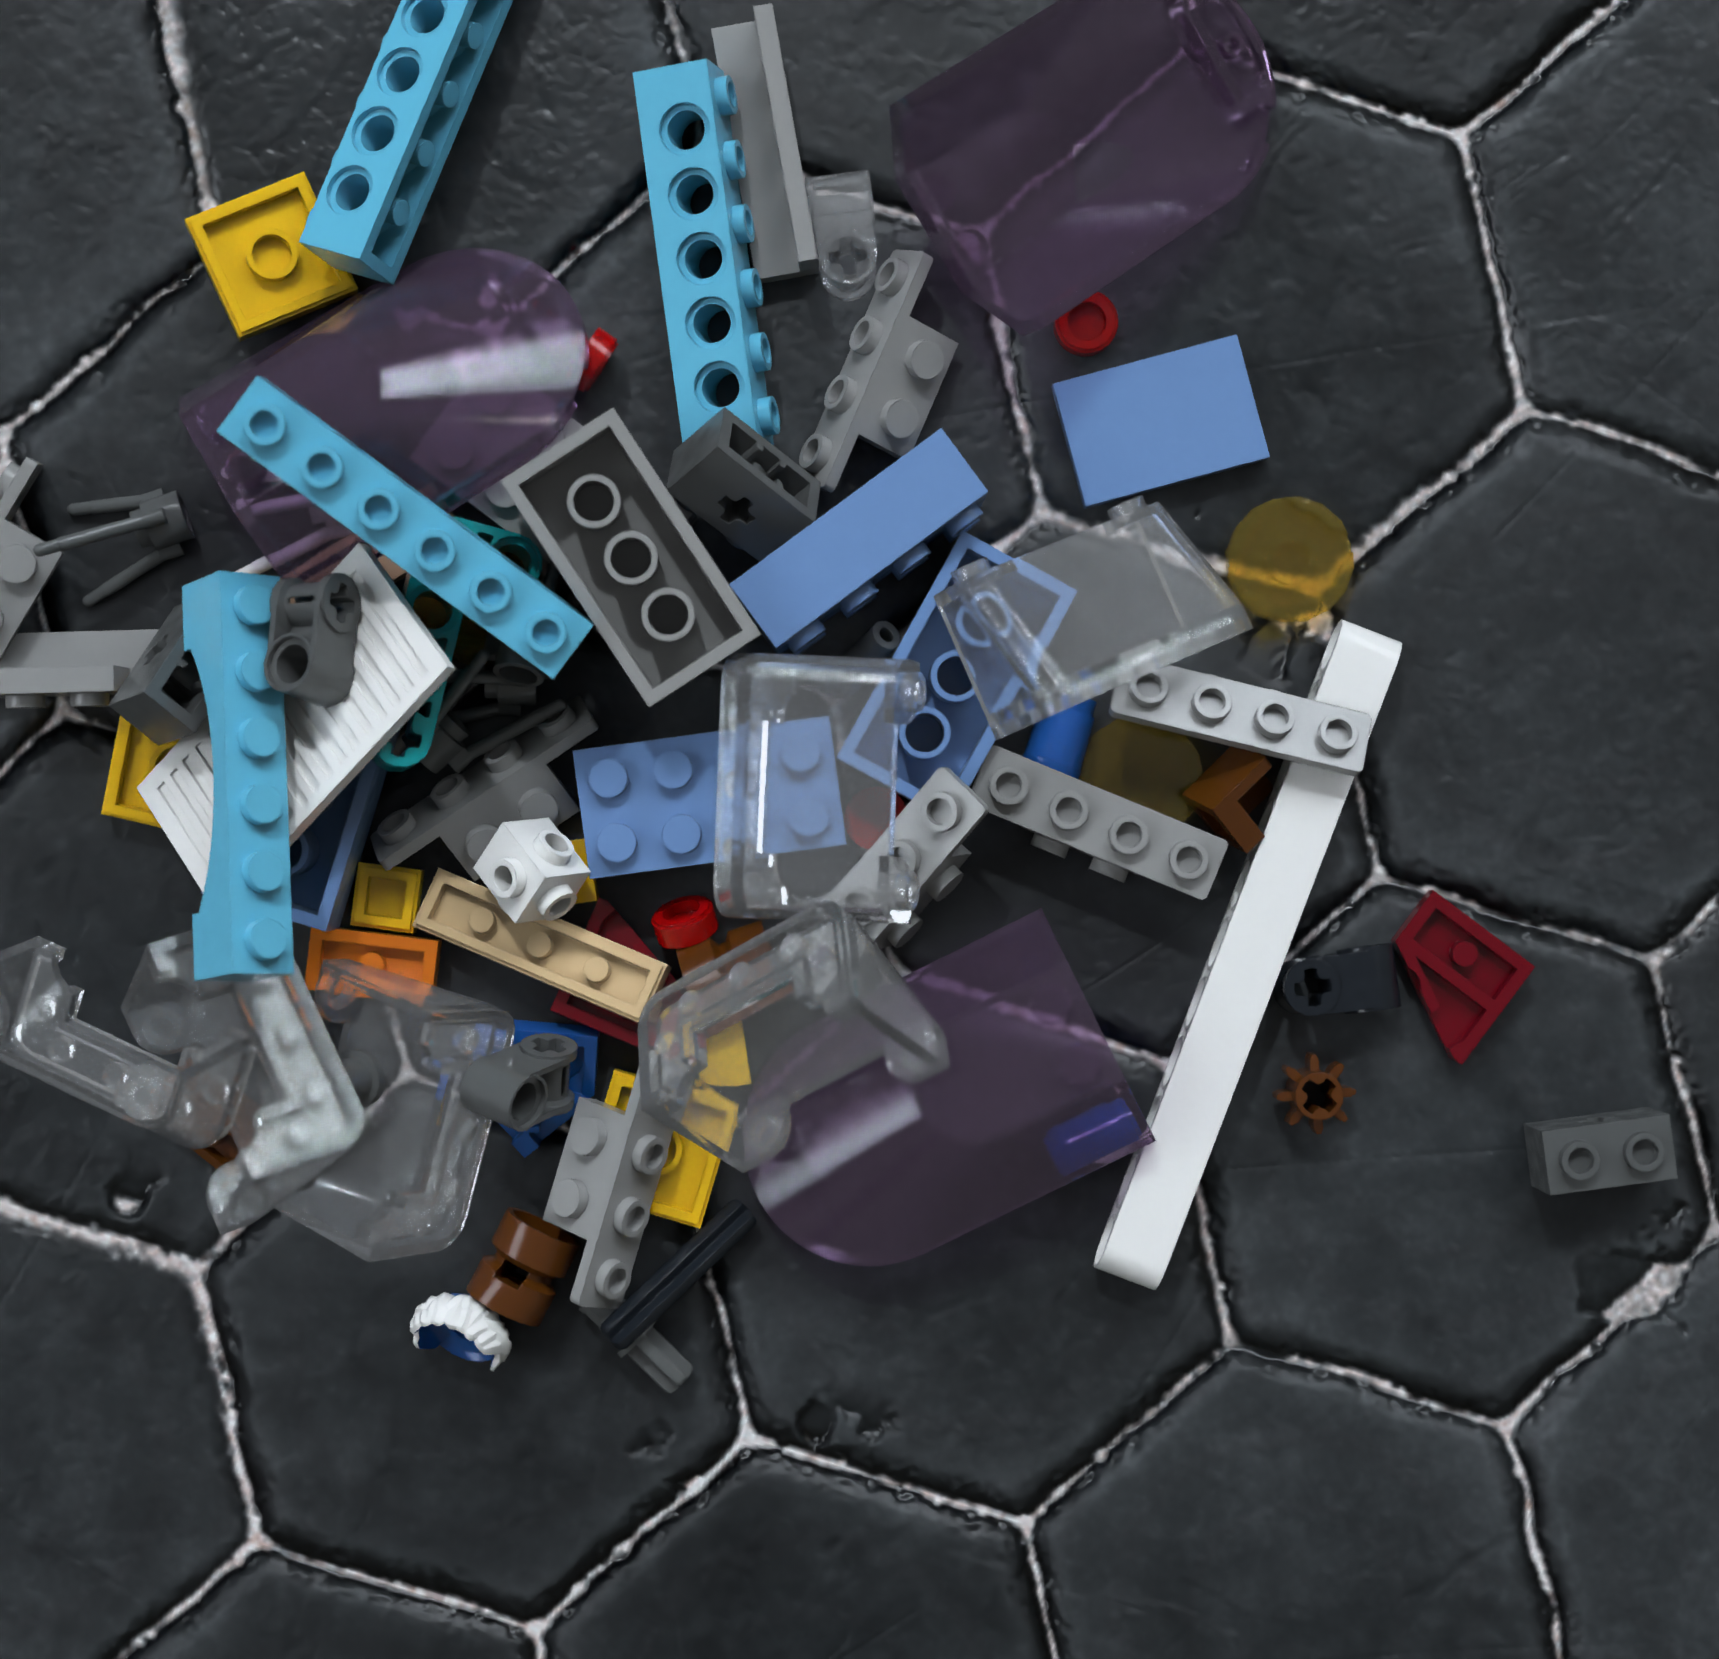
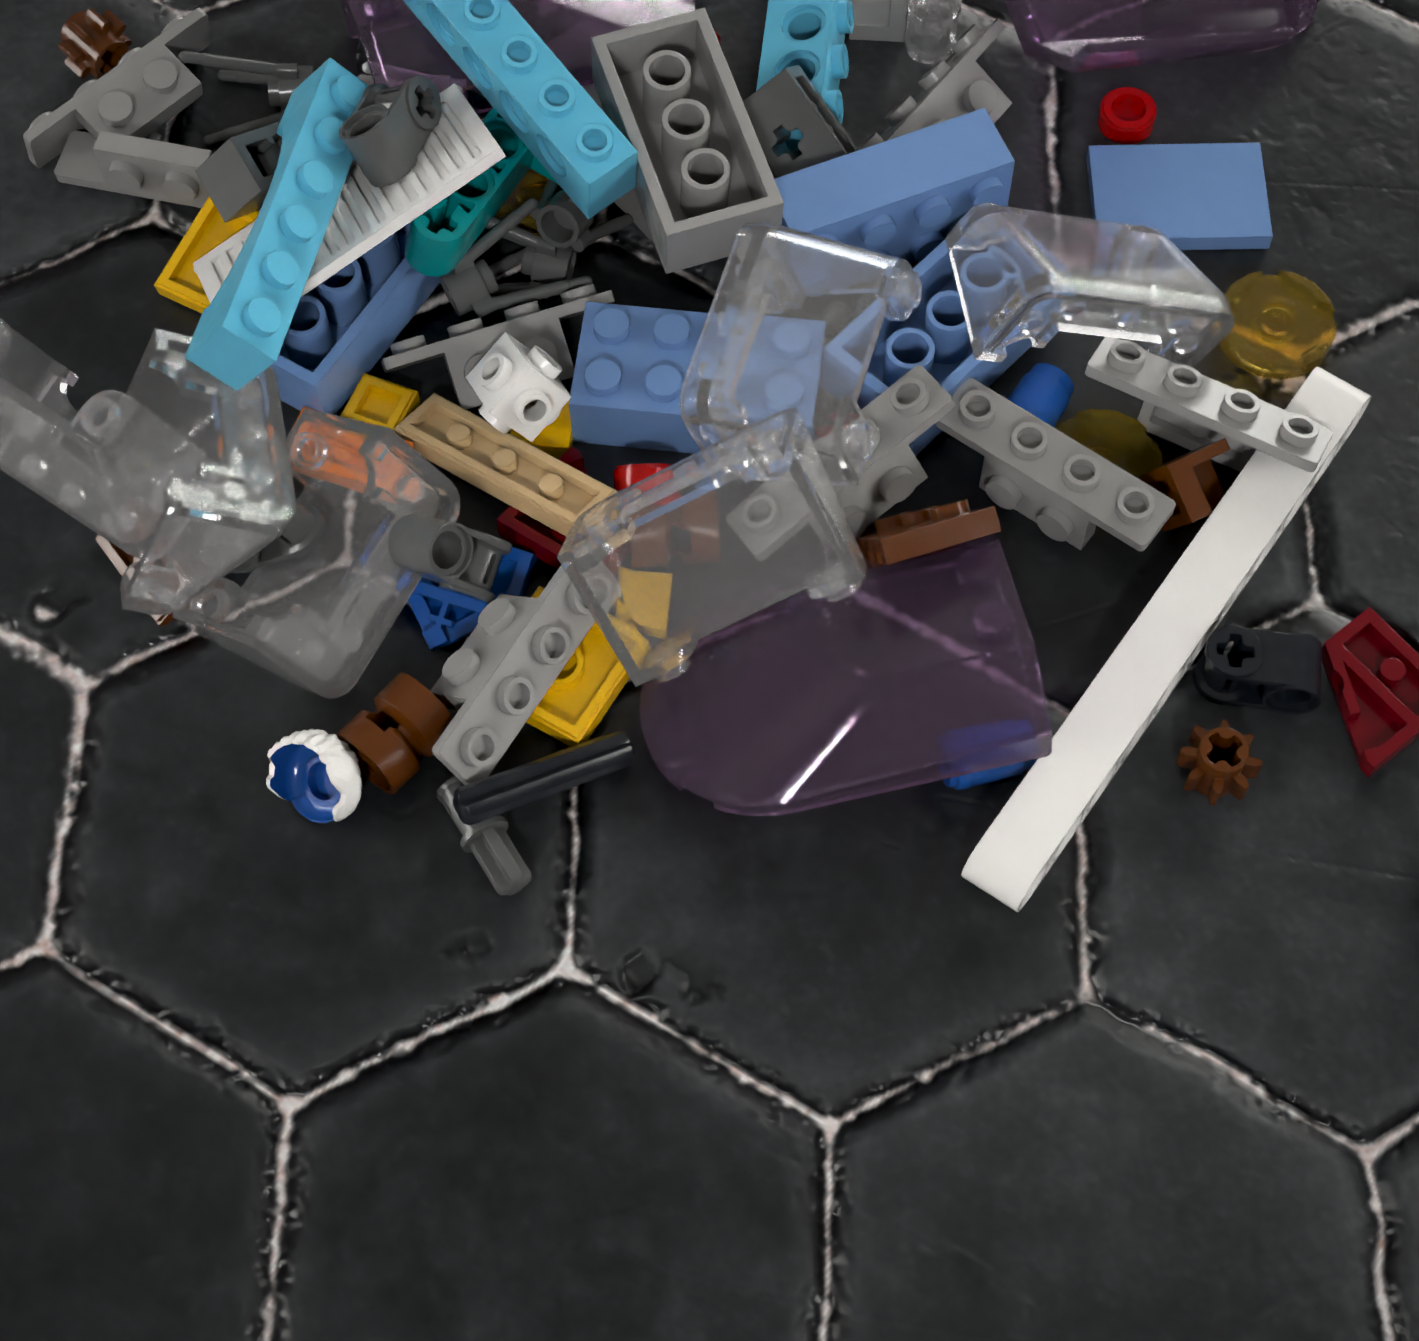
camera: 15 degrees right, 25 degrees down
(984, 968) = (926, 531): none -> reddish brown wing

